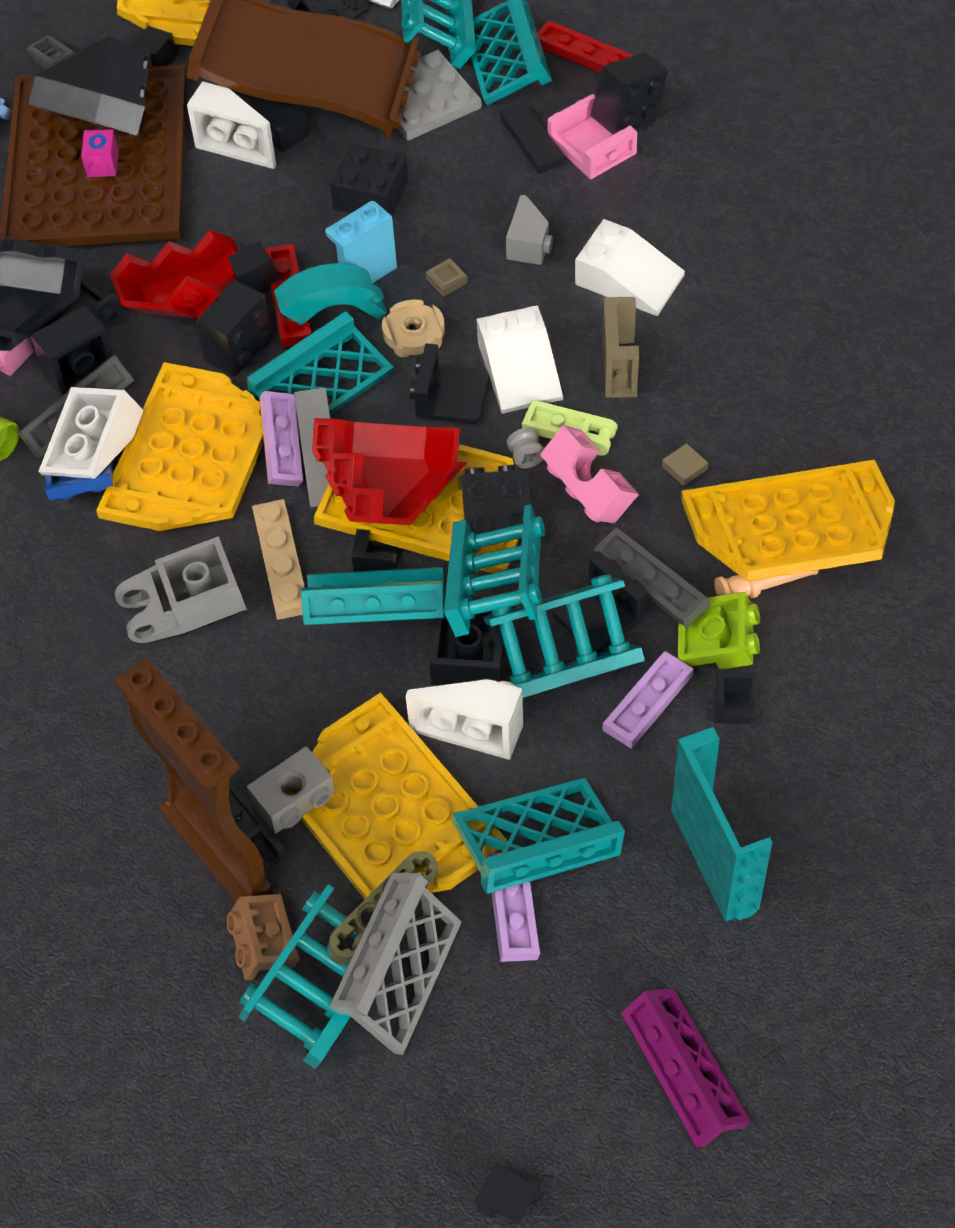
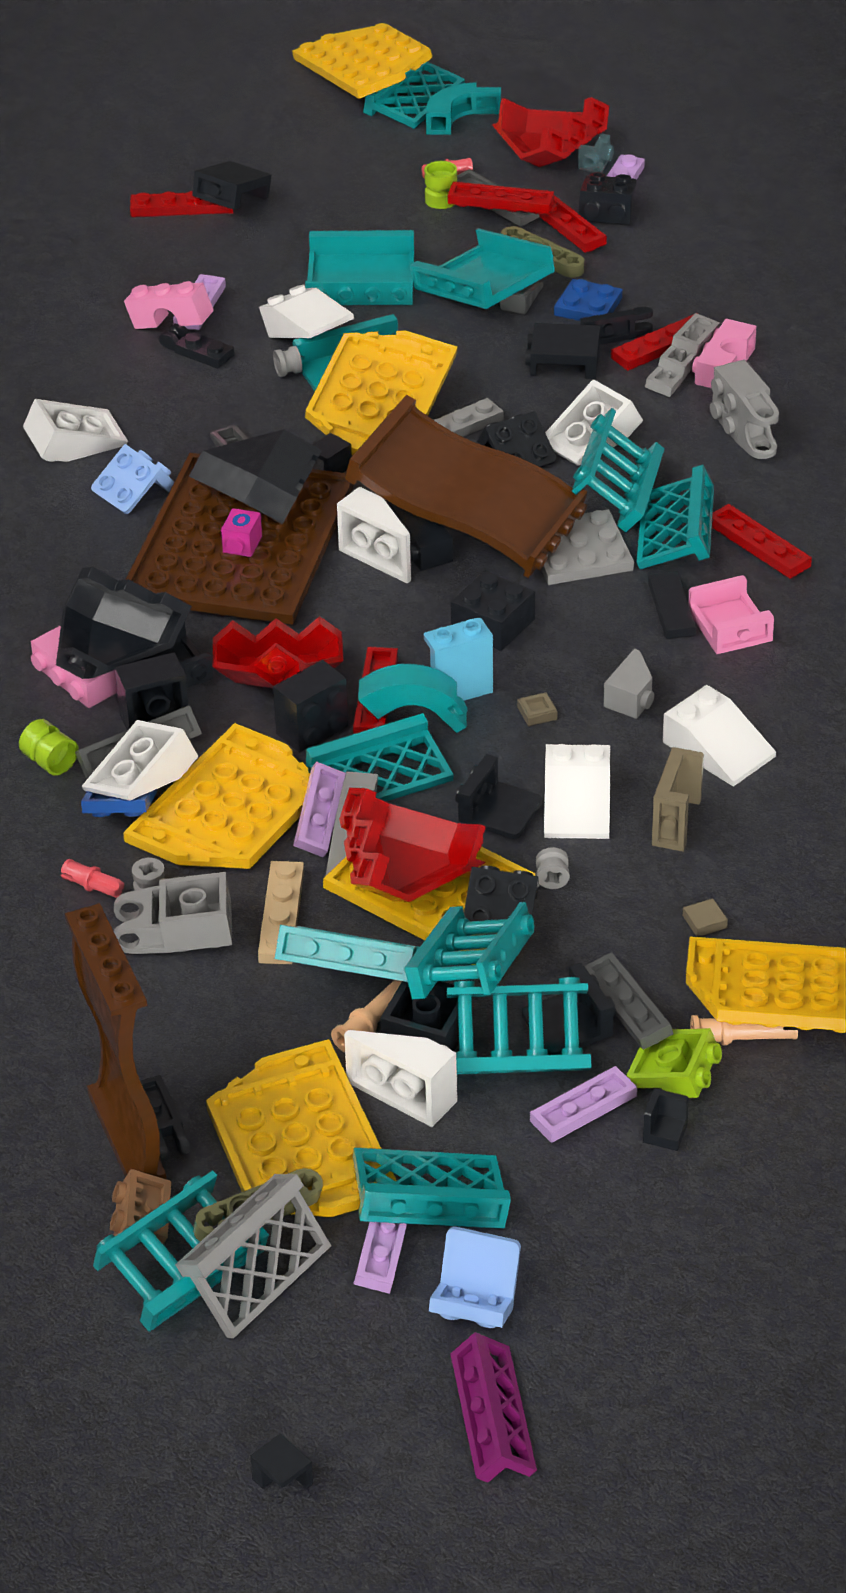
camera: 15 degrees right, 15 degrees down
(80, 568) = (91, 878): none -> coral axle
(146, 556) = (147, 873): none -> light grey wheel
(254, 266) = (350, 657): black panel -> none
(297, 772) = (211, 1093): light grey brick -> none
(369, 557) = (360, 922): black panel -> none
(406, 661) = (365, 1018): none -> light nougat pin
(412, 342) = (501, 741): tan plate -> none
(549, 418) = (605, 860): yellowish green plate -> none
(570, 459) = (608, 918): bright pink arch -> none
(622, 929) = (477, 1278): none -> light blue bracket
(629, 92) = (778, 579): black brick -> none
(731, 871) = (594, 1220): teal panel -> none

